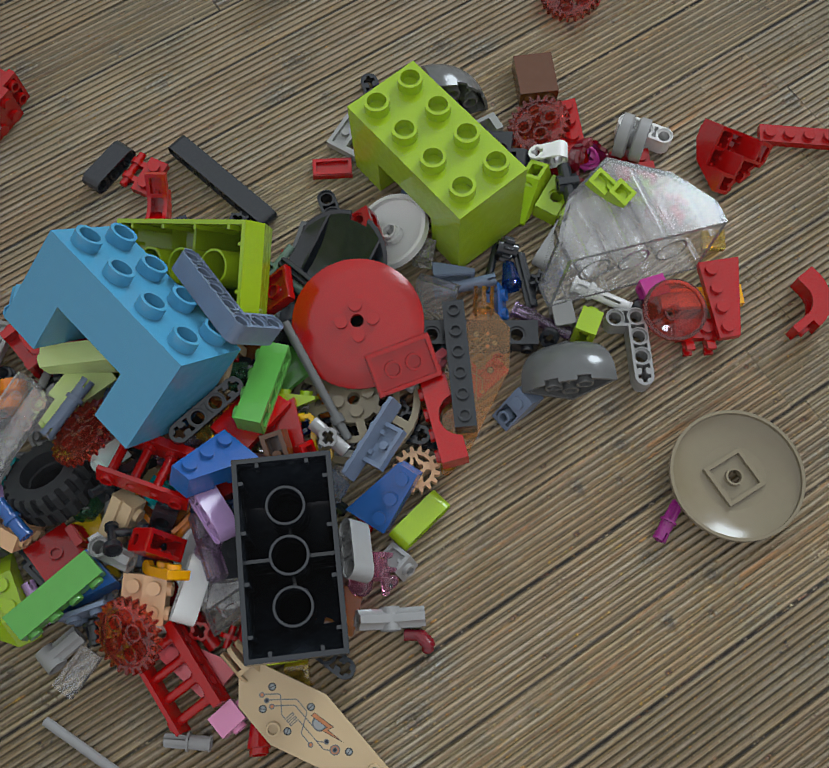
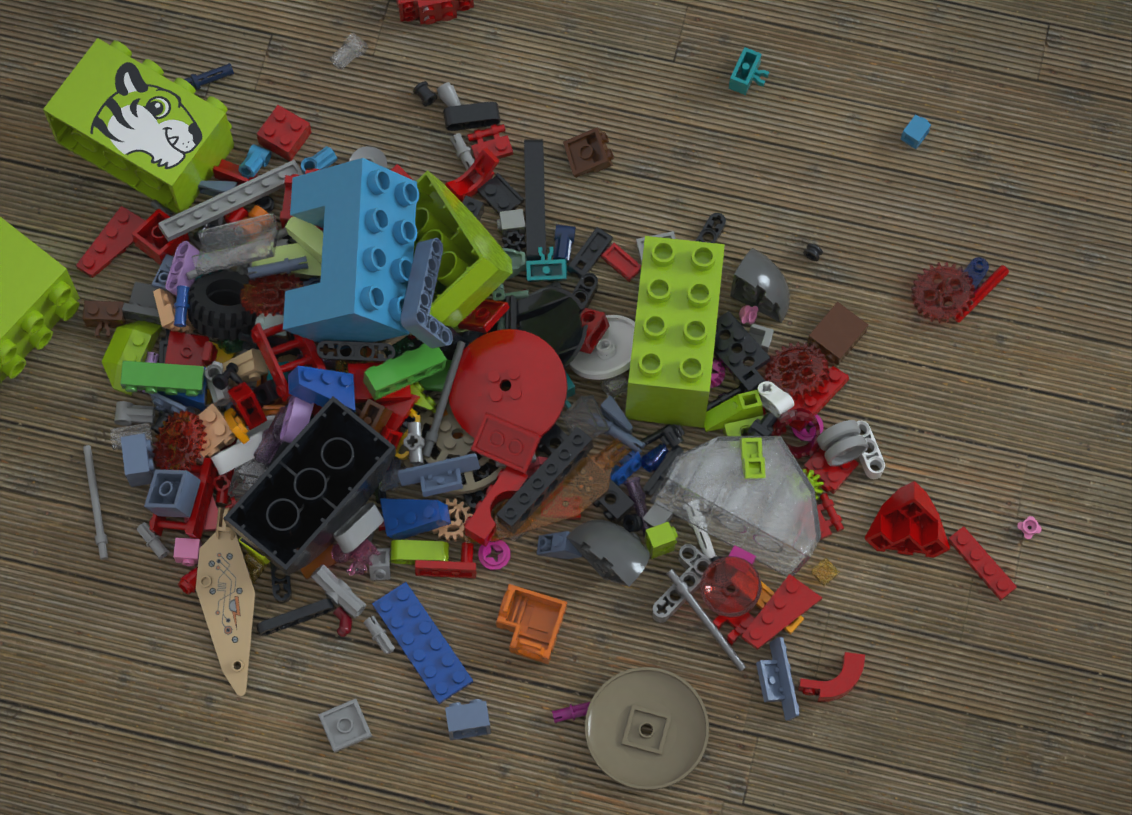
camera: 45 degrees right, 0 degrees up
(54, 182) = (425, 94): none -> black bush
(73, 167) = (448, 95): none -> light grey cone
(104, 687) = (138, 459): none -> sand blue brick
(129, 196) = (463, 151): none -> light grey pin
(166, 686) = (172, 493): none -> sand blue brick
(192, 202) = (500, 194): none -> black plate
(221, 208) = (511, 221): none -> light grey brick
(226, 115) = (588, 152): none -> reddish brown plate
(274, 189) = (563, 242): none -> dark blue piece
(286, 218) = (546, 270): none -> teal brick
(303, 181) = (590, 252): none -> black plate
(377, 678) = (295, 617): none -> black beam
(457, 43) = (813, 252): none -> black bush
(460, 619) = (379, 635): none -> light grey axle
(467, 498) = (462, 569): none -> red piece
(486, 461) = (489, 562): none -> dark pink gear
(499, 589) = (422, 643): none -> blue plate
(515, 724) = (345, 725): none -> light grey plate
(567, 482) = (533, 620): none -> orange piece
(607, 613) = (467, 719): none -> sand blue brick
(645, 345) = (682, 588): none -> flat silver bar
(776, 344) = (777, 680): none -> sand blue bracket
(797, 86) = (1035, 528): none -> bright pink plate

